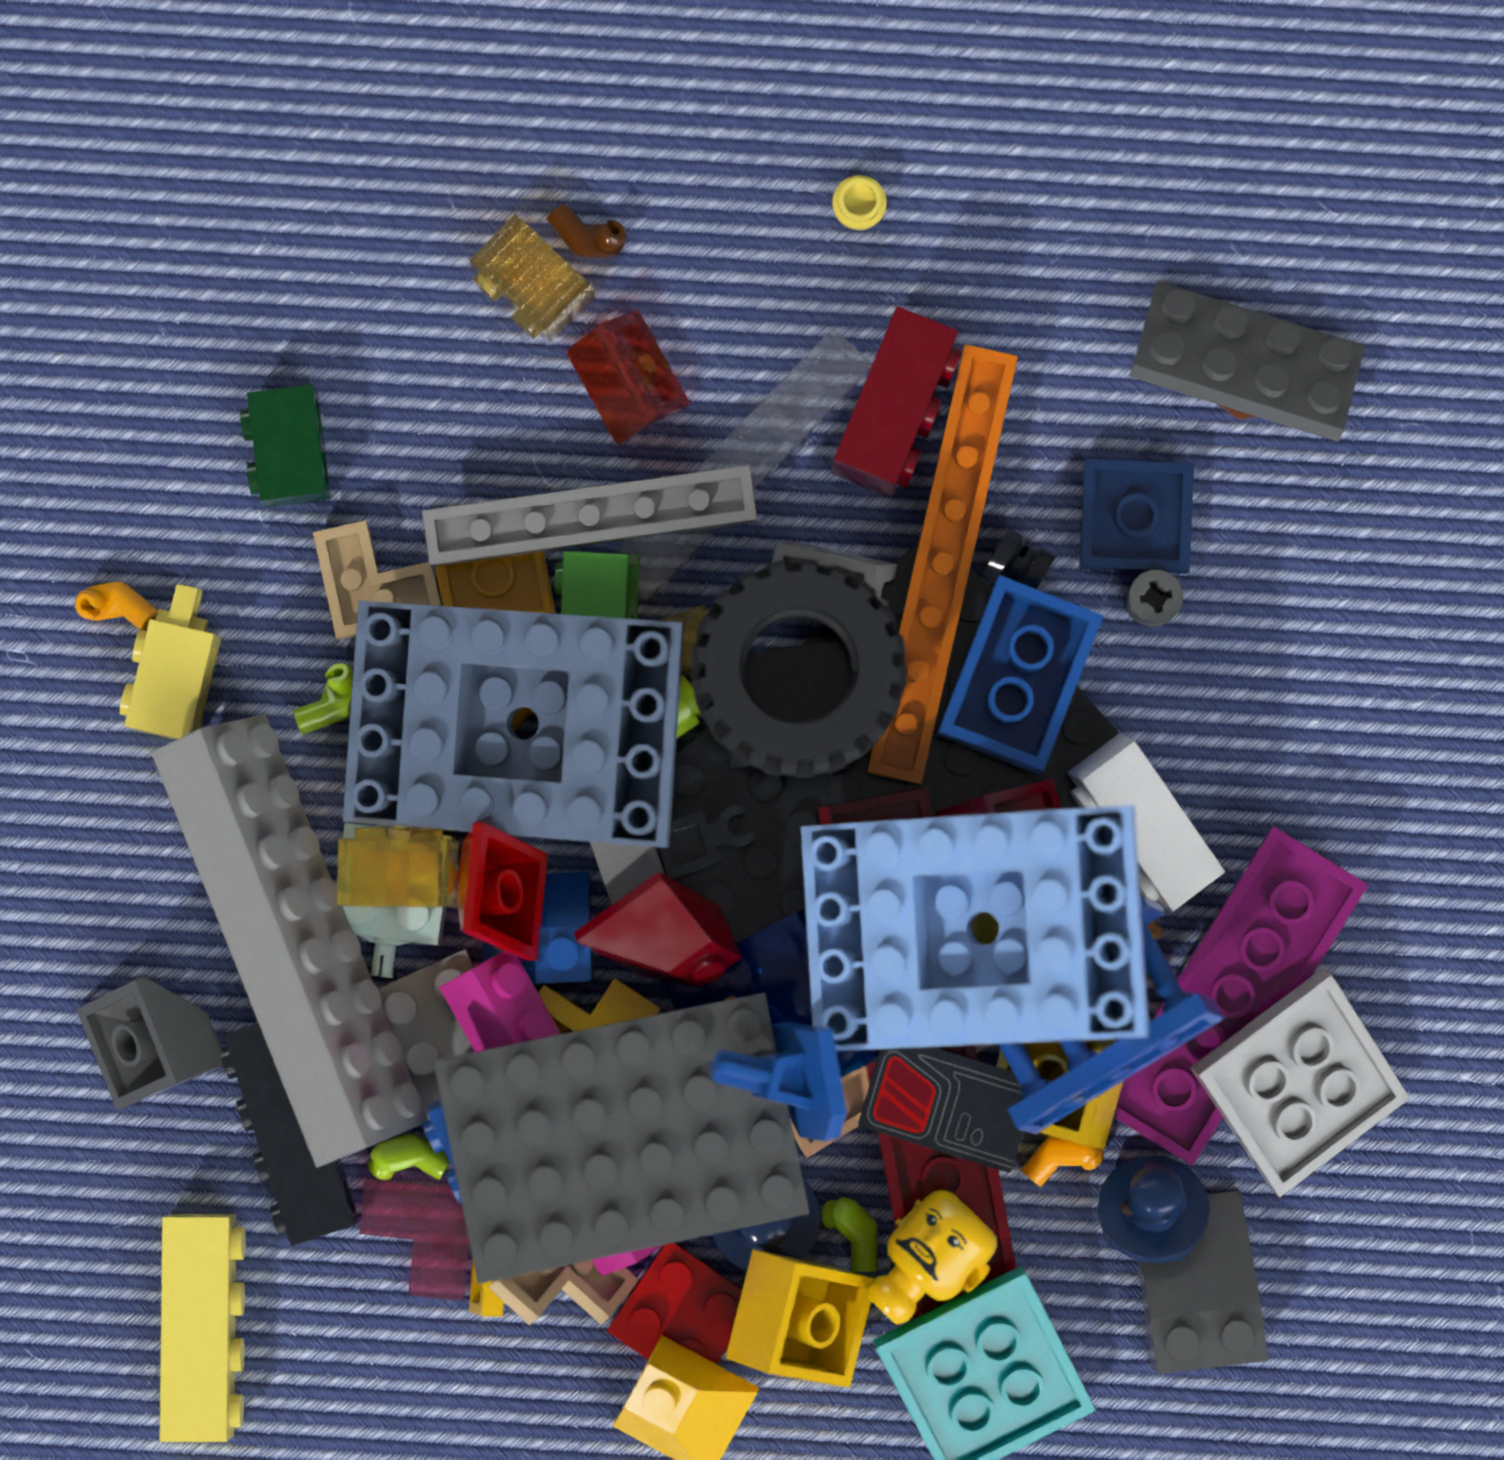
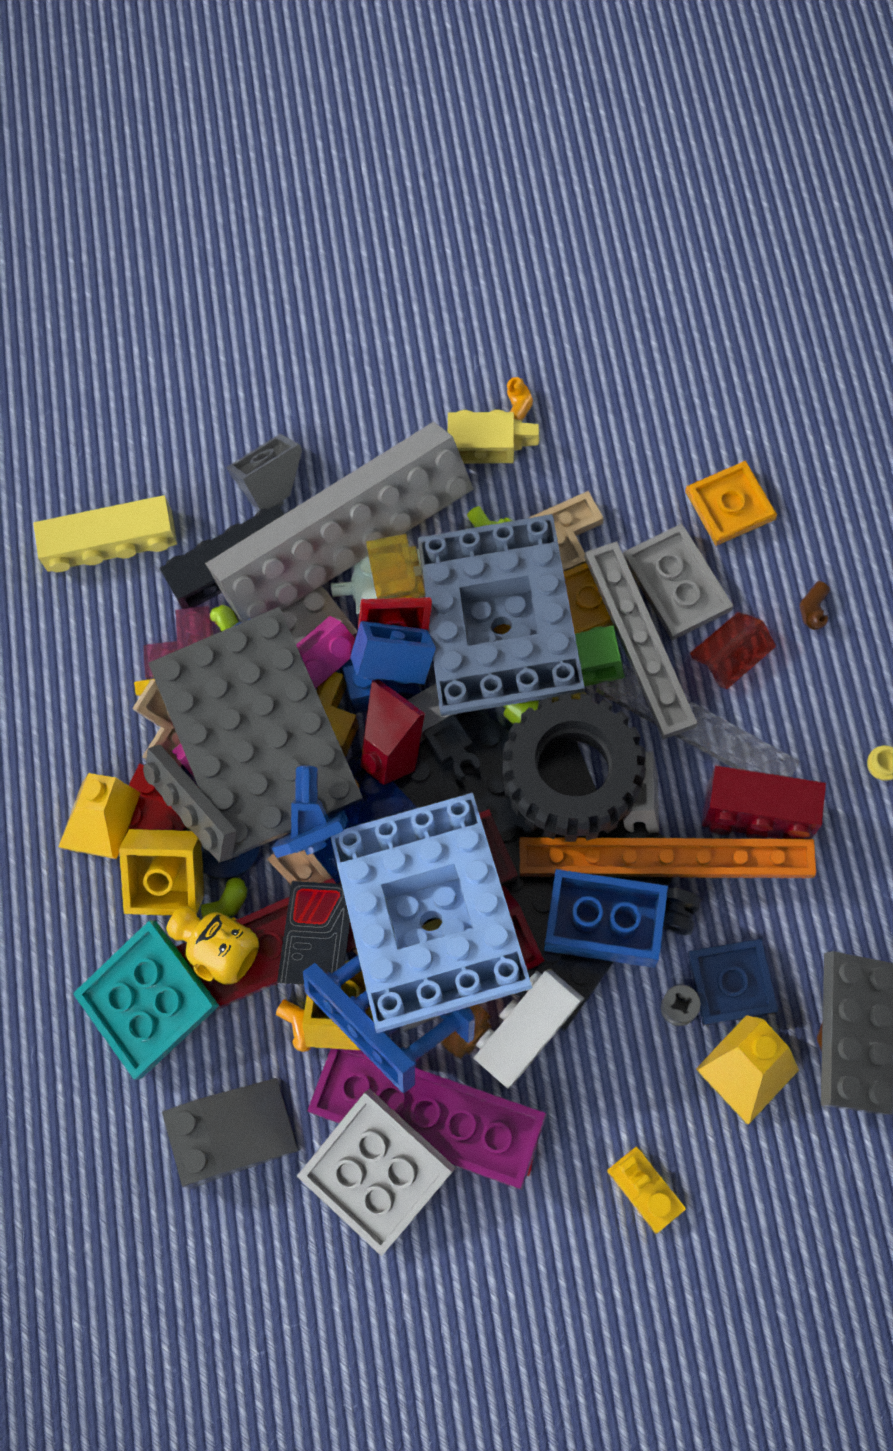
camera: 85 degrees right, 15 degrees down
(286, 445) = (636, 467): dark green brick -> none
(382, 313) = (730, 503): none -> light orange plate
(497, 432) = (677, 582): none -> light grey plate
(531, 280) = (776, 579): clear yellow brick -> none
(544, 900) = (392, 653): none -> blue brick
(709, 1257) = (190, 803): none -> dark grey plate
(1153, 1209) = (272, 1090): dark blue plate -> none
(1262, 527) = (749, 1067): none -> yellow slope
(1393, 711) = (646, 1190): none -> yellow plate

